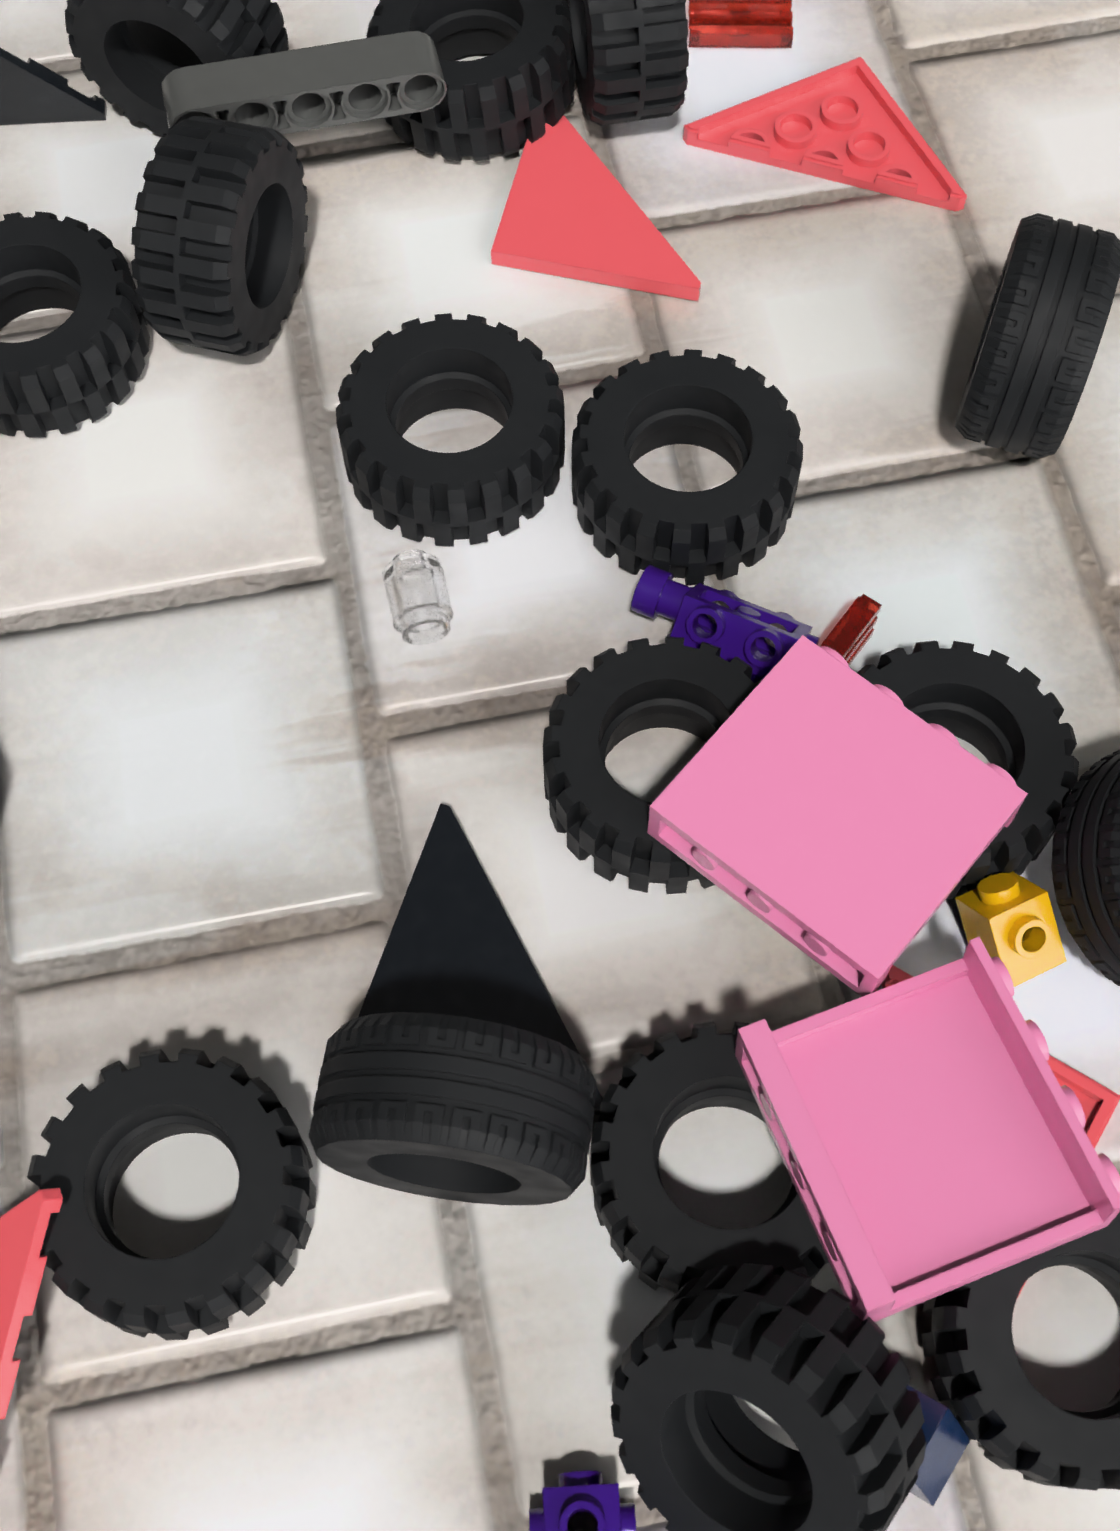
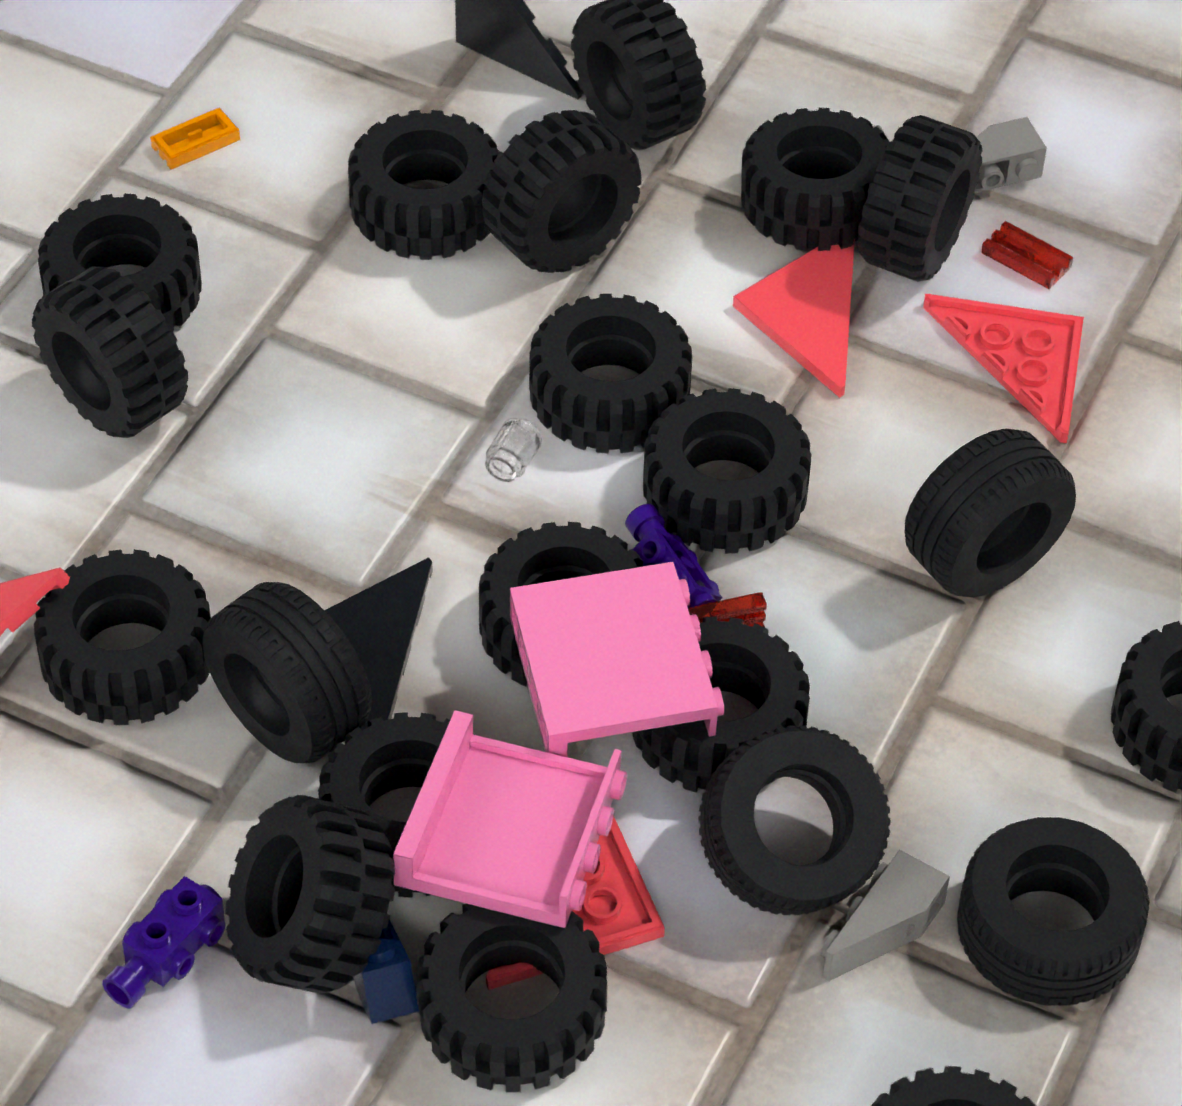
camera: 35 degrees right, 15 degrees down
(312, 84) = (682, 136): dark grey beam -> none
(1013, 924) = (677, 801): yellow brick -> none

